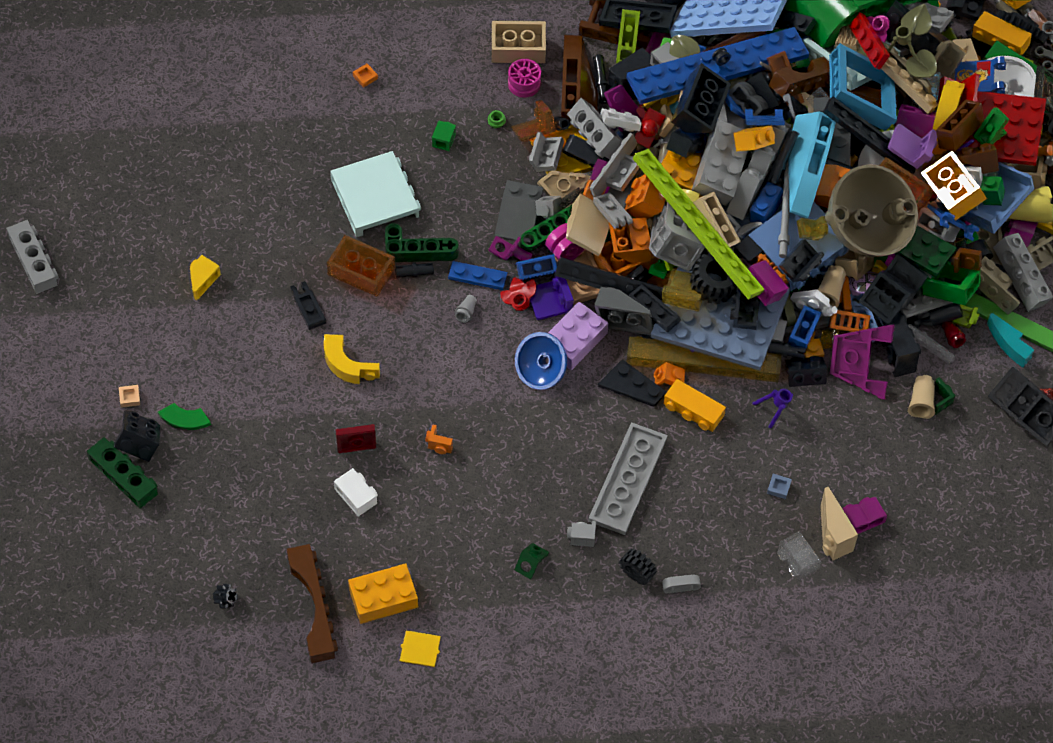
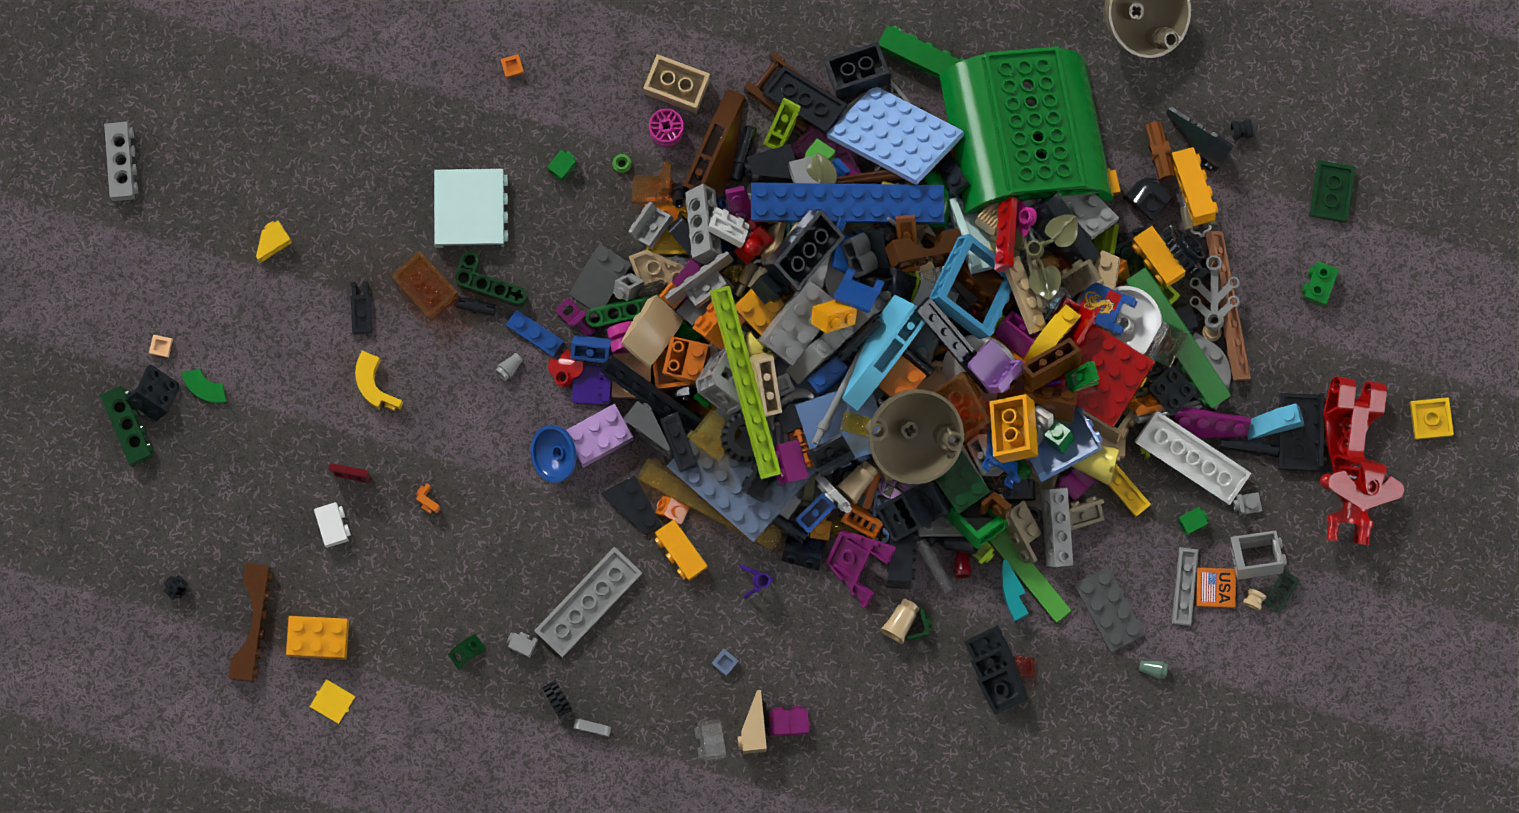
camera: 20 degrees right, 20 degrees up
(612, 210) = (677, 327): light grey hinge -> none
(721, 56) = (849, 201): black bush -> none

